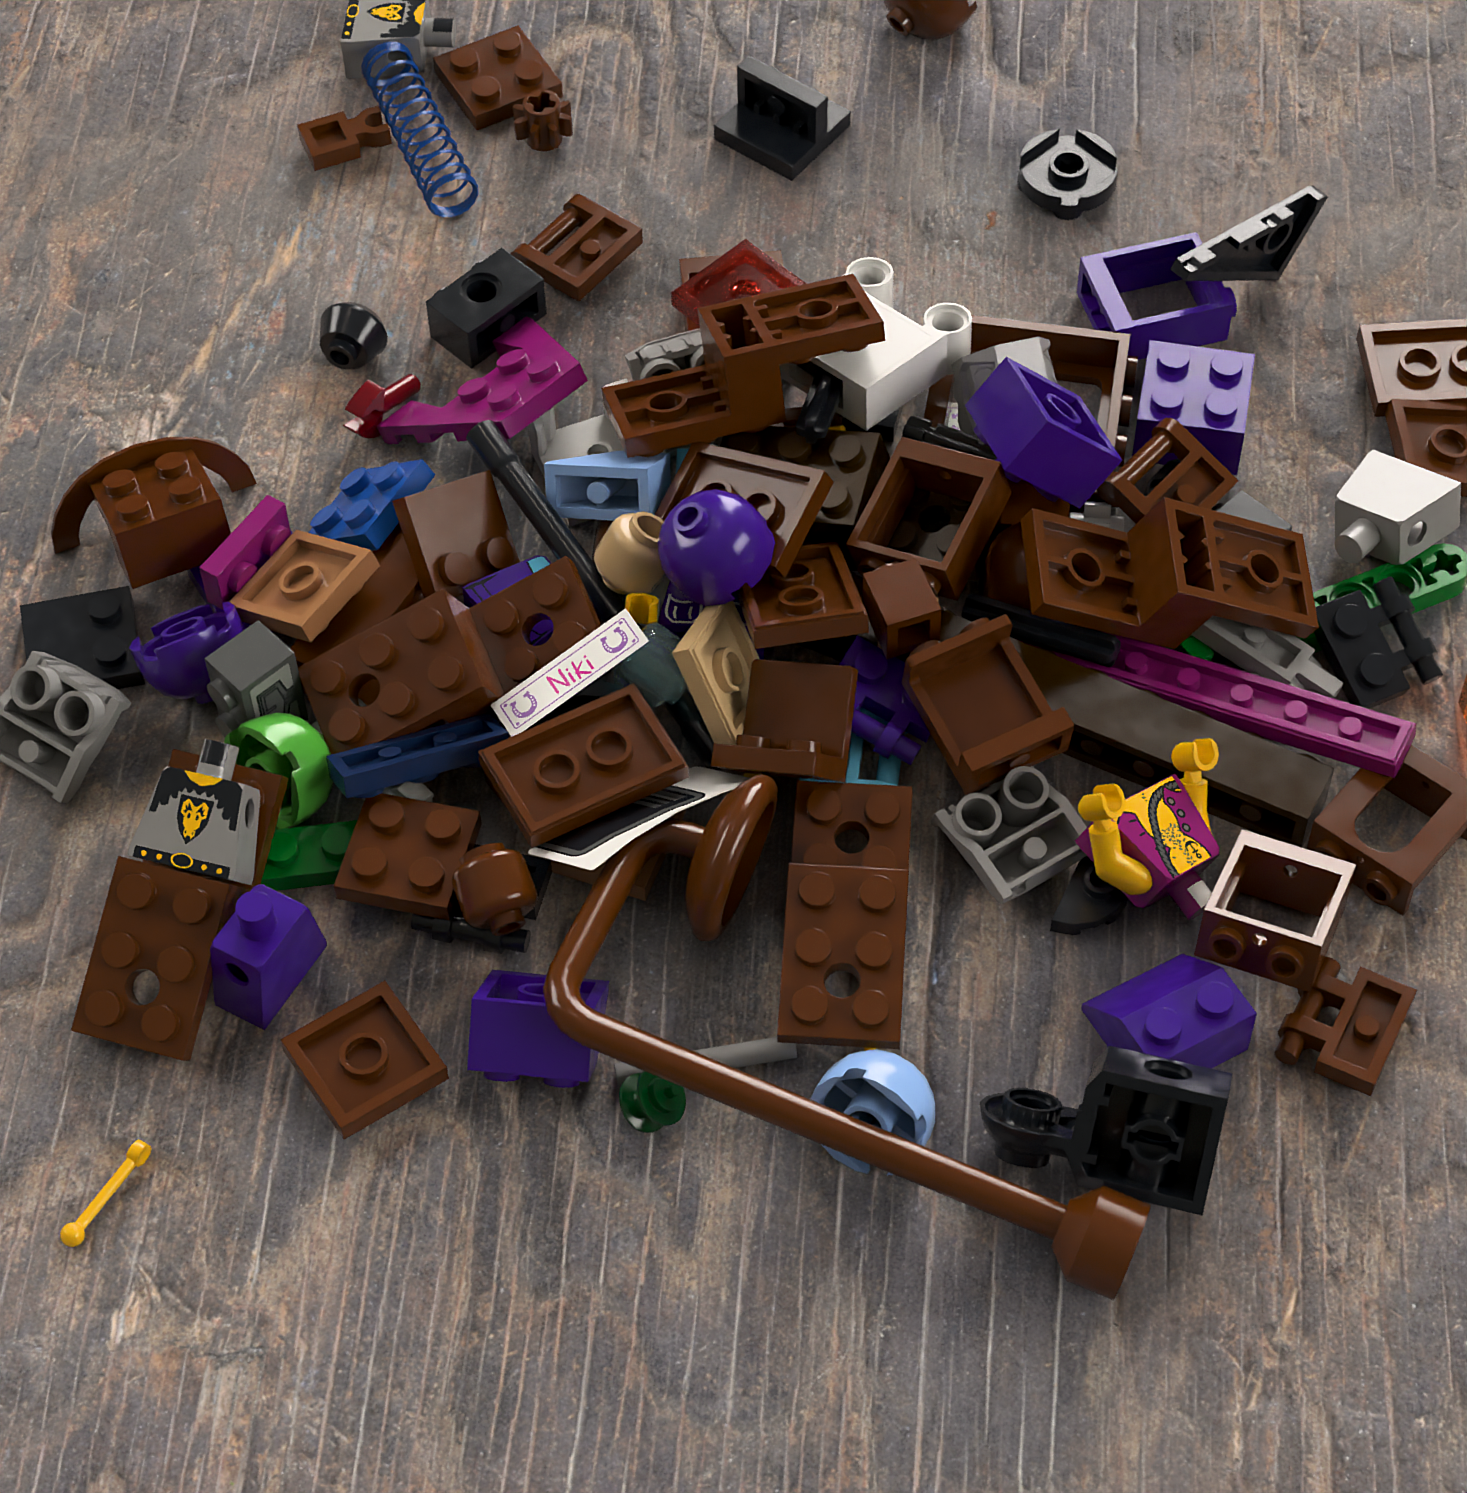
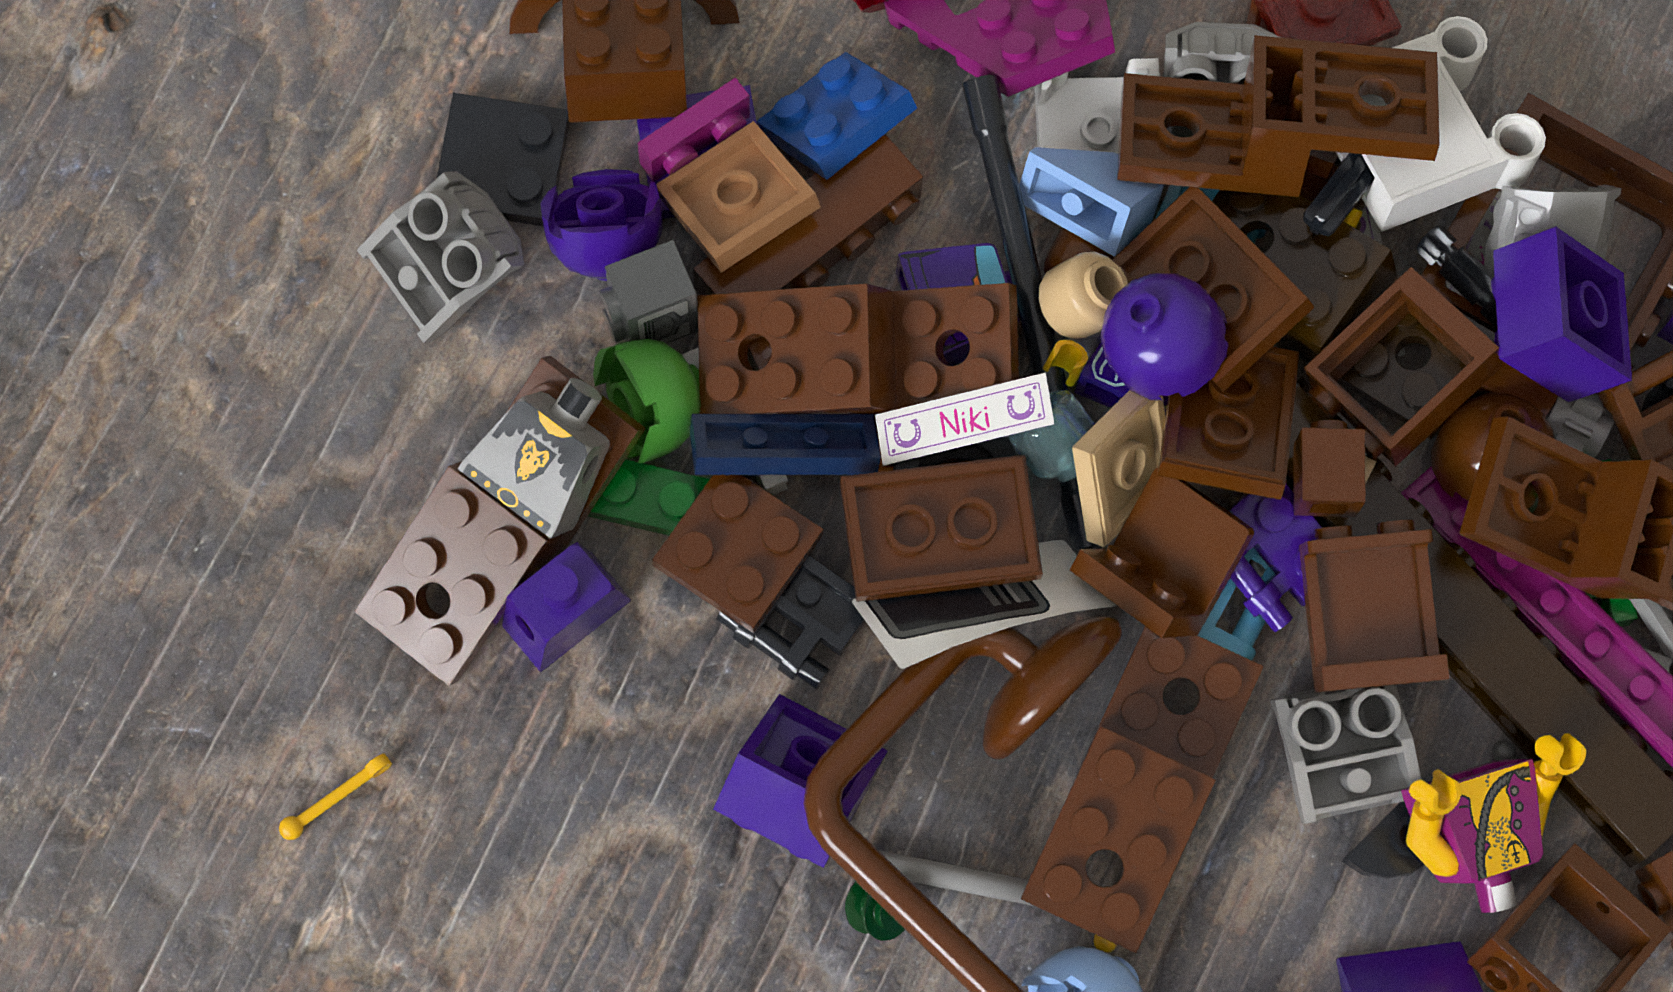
camera: 15 degrees right, 20 degrees up
(364, 1059) = (621, 751): reddish brown plate -> none
(456, 533) = (914, 192): reddish brown plate -> none
(494, 888) = (806, 628): reddish brown head -> none
(1045, 632) = (1449, 510): black axle -> none

